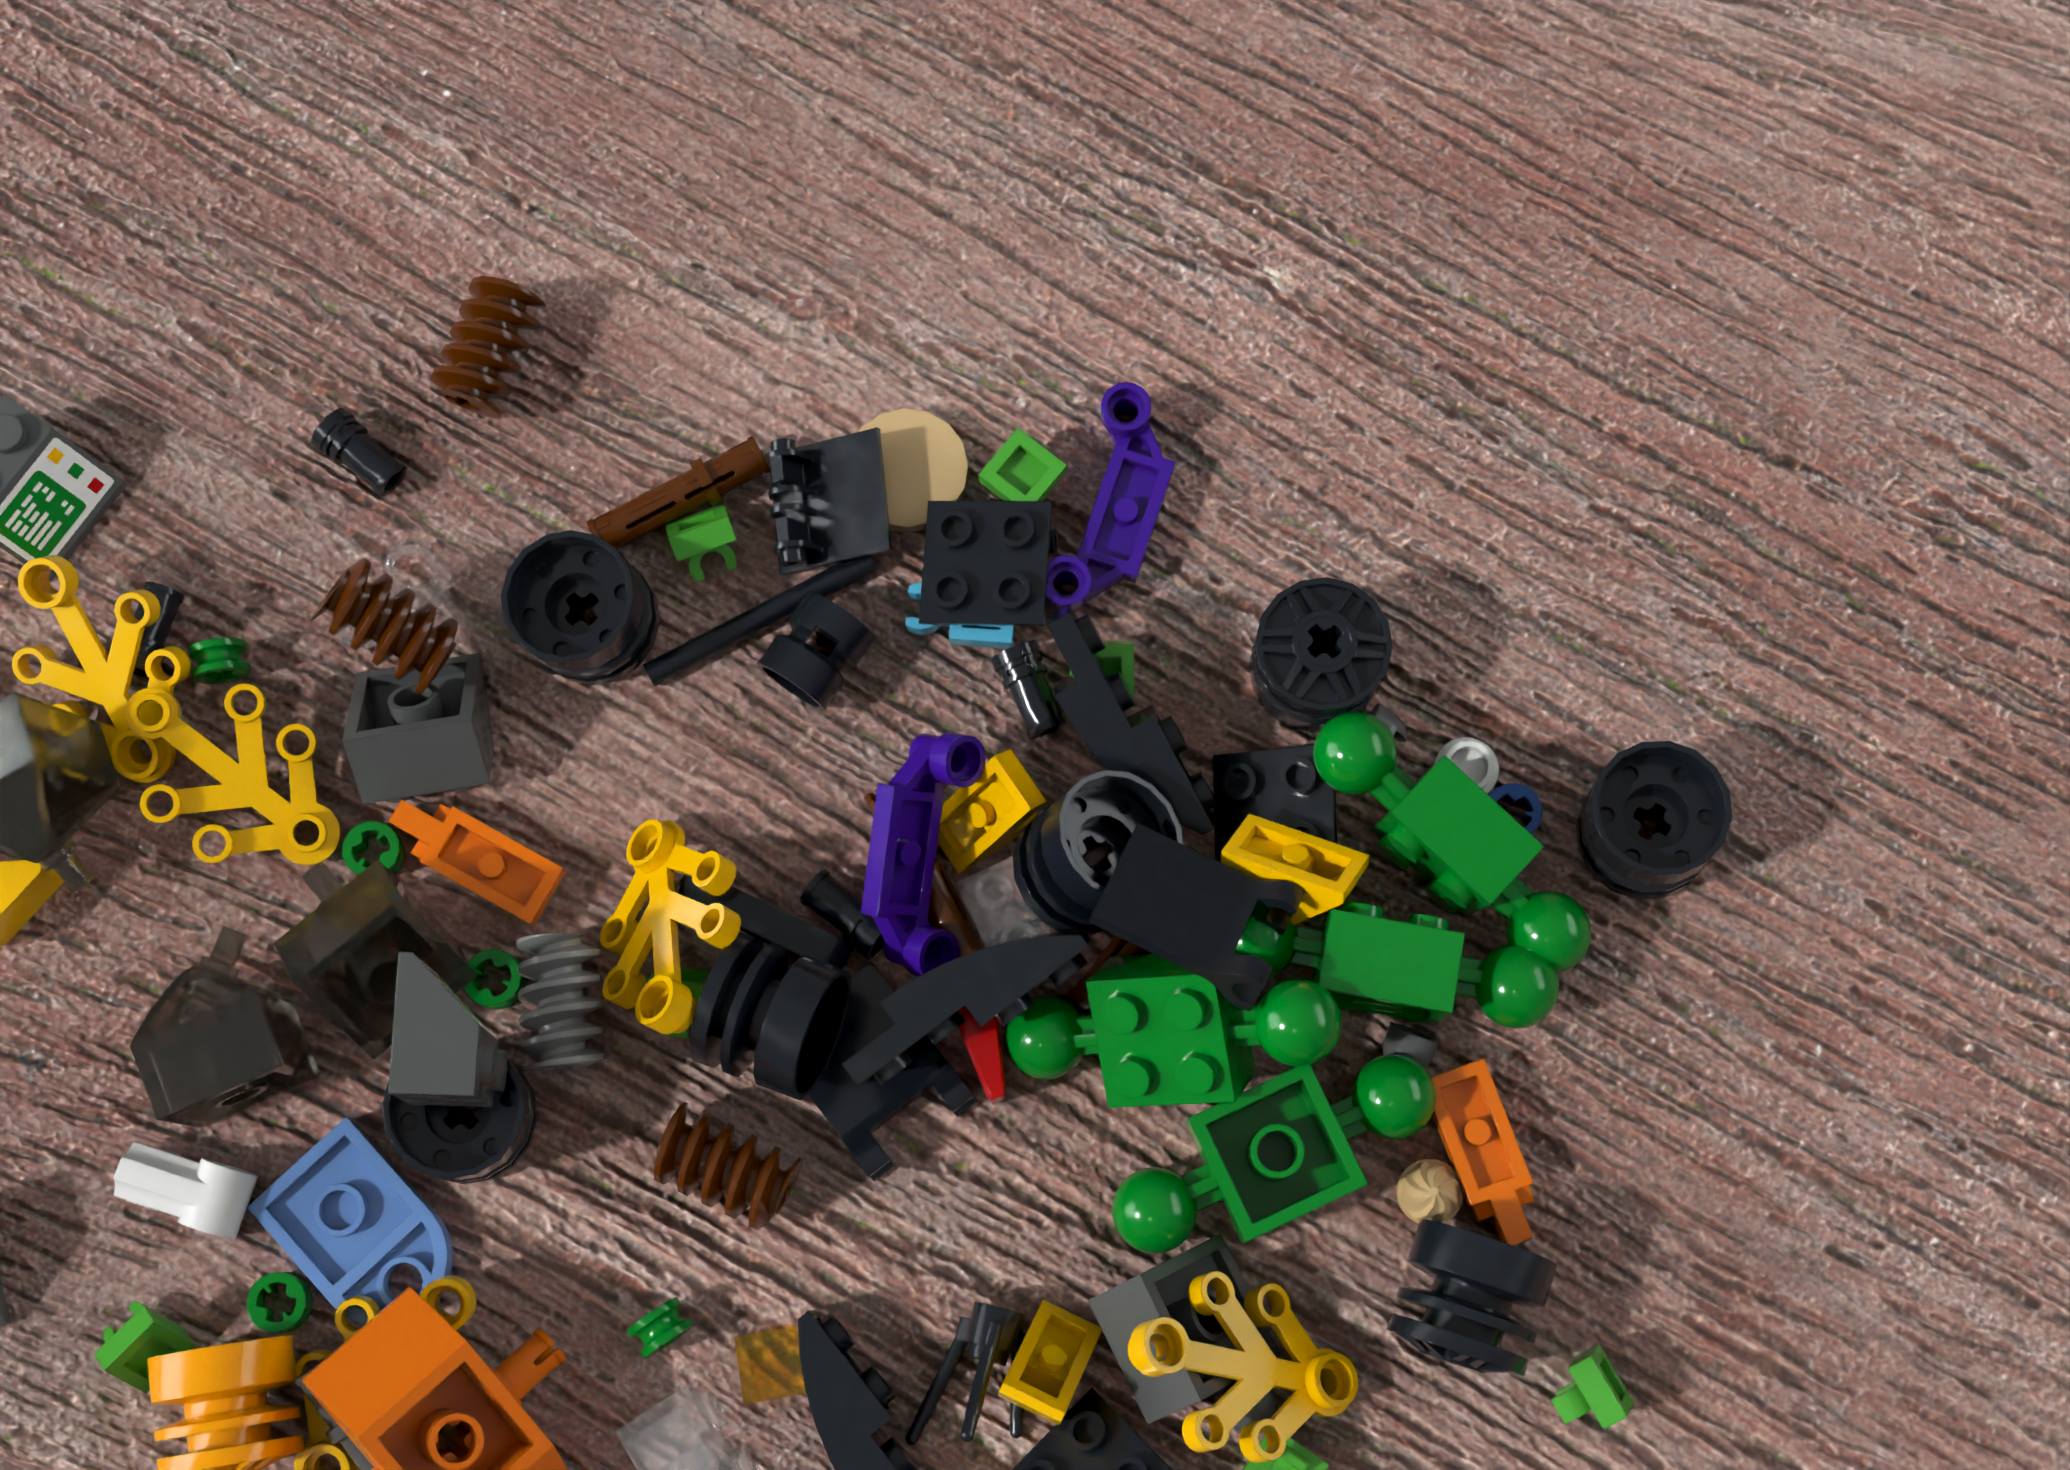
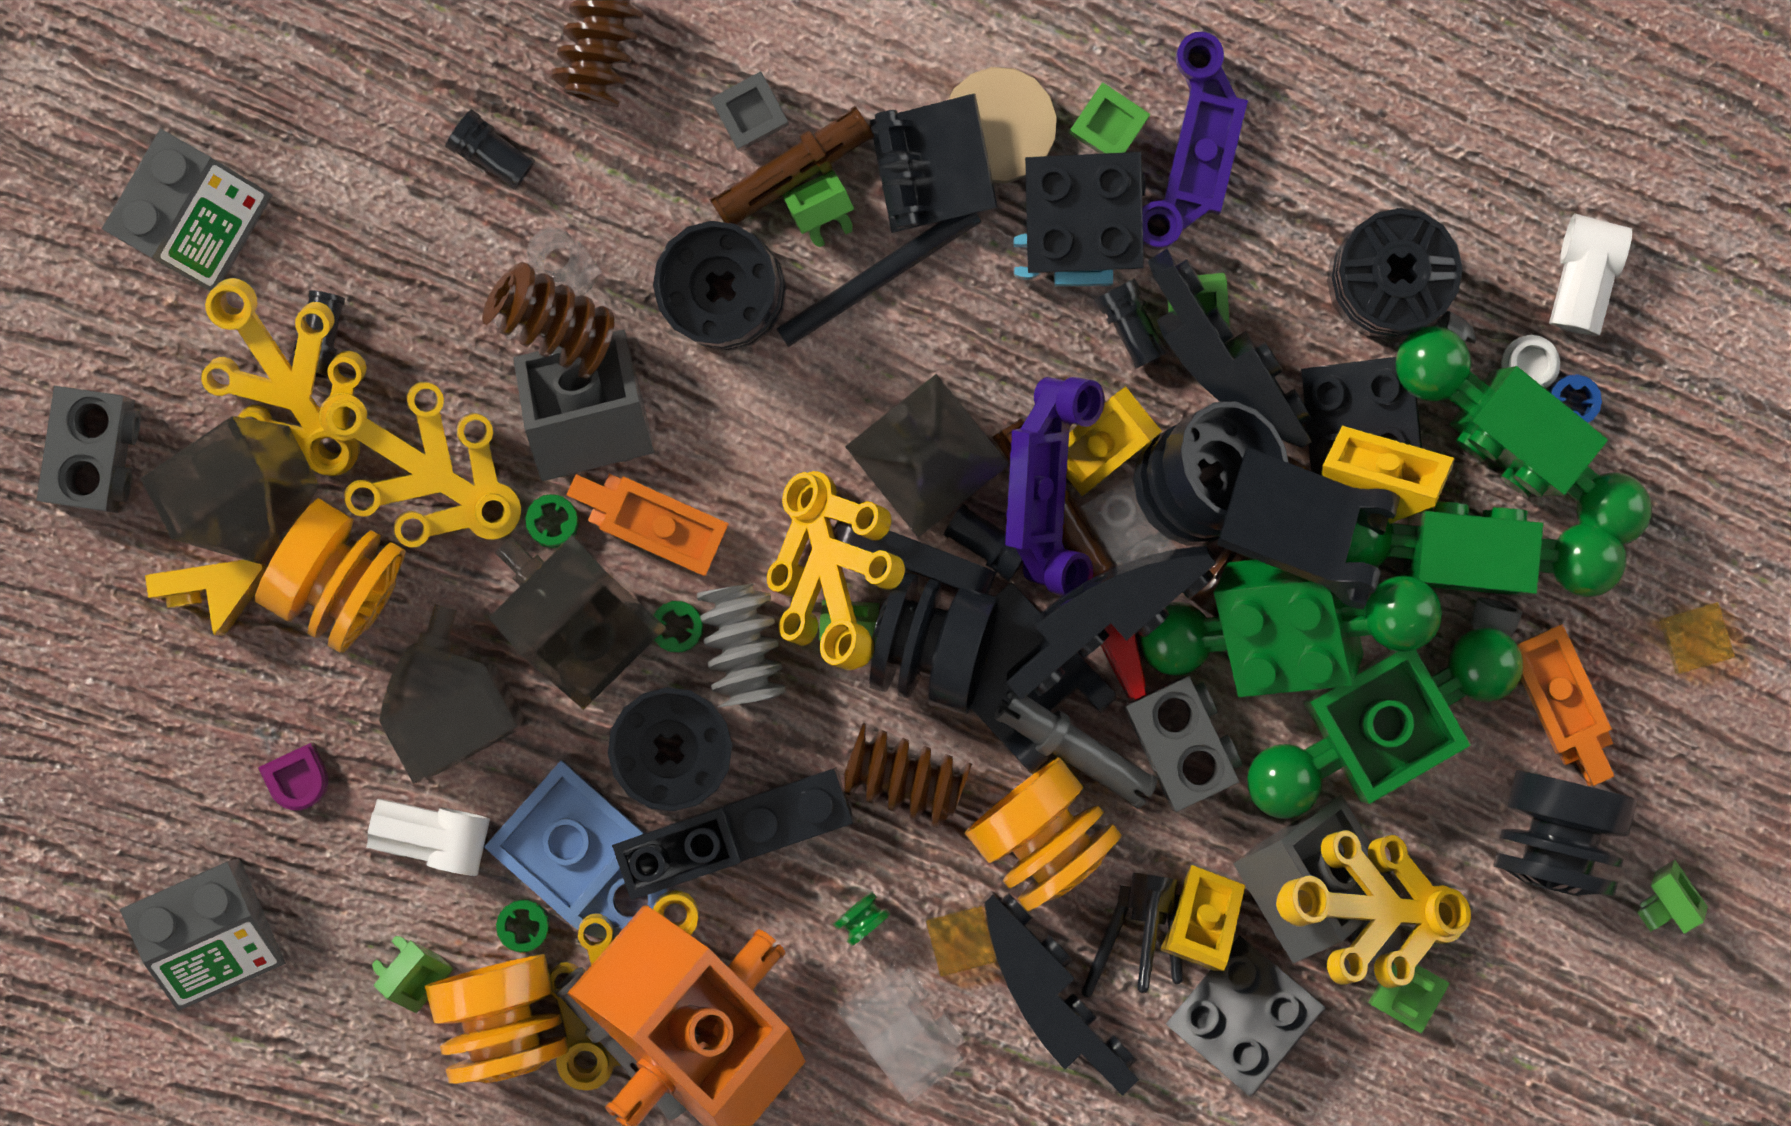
camera: 15 degrees left, 10 degrees up
(54, 1112) = (296, 778): none -> magenta tile
(112, 885) = (326, 573): none -> light orange wheel
(219, 660) = (388, 358): green bush -> none
(439, 1045) = (665, 699): dark grey slope -> none
(523, 1216) = (733, 833): none -> black slope
(640, 434) = (749, 111): none -> dark grey plate
(786, 812) = (926, 456): none -> clear smoke piece
(804, 669) = (927, 324): black wheel -> none
(871, 1246) = (1043, 835): none -> light orange wheel
(921, 1151) = (1057, 736): none -> dark grey pin
(1029, 1161) = (1169, 749): none -> dark grey brick
(1429, 1191) = (1521, 743): tan plate -> none
(1540, 662) = (1592, 259): none -> white piece
(1636, 1089) = (1696, 638): none -> clear yellow tile
(1673, 790) = (1733, 395): black wheel -> none

